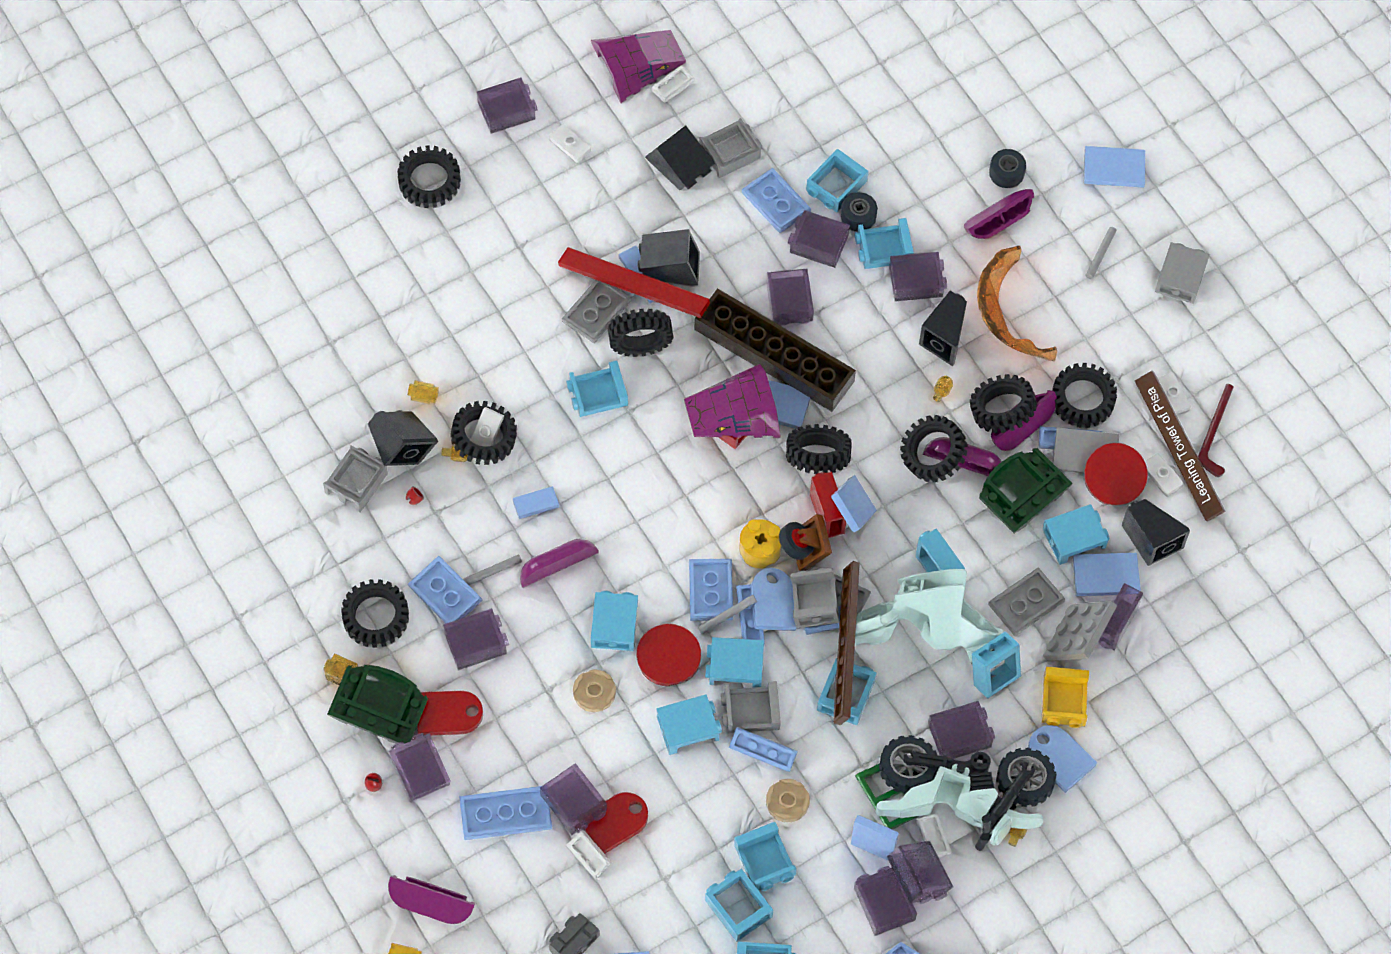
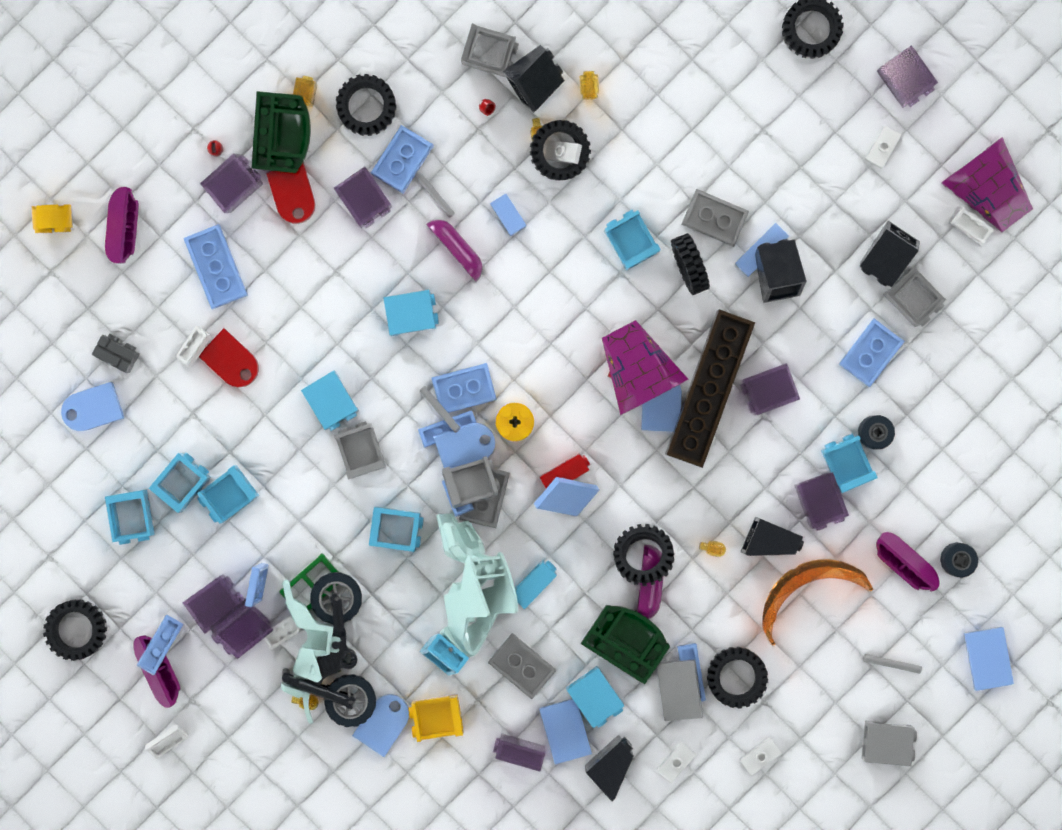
camera: 80 degrees right, 25 degrees up
(573, 799) = (233, 321): clear purple brick -> none
(594, 690) = (344, 312): tan tile -> none
(634, 282) = (745, 244): red tile -> none
(668, 654) = (392, 367): red tile -> none
(735, 661) = (397, 426): medium azure panel -> none
(763, 749) = (324, 469): light blue tile -> none
(787, 800) = (285, 501): tan tile -> none
(806, 541) = (522, 461): plate -> none
(818, 238) = (838, 401): clear purple brick -> none
(818, 461) = (597, 452): black tyre -> none
(846, 643) = (431, 520): reddish brown tile -> none
(848, 167) = (922, 411): medium azure window -> none
(961, 730) = (382, 635): clear purple brick -> none
(1005, 419) = (690, 622): black tyre -> none
(1044, 411) = (696, 627): magenta brick -> none
(1079, 631) = (495, 721): light grey plate -> none
(1115, 474) = (662, 721): red tile -> none
(1179, 446) = (708, 772): reddish brown tile -> none
(1208, 464) = (706, 795): dark red piece -> none

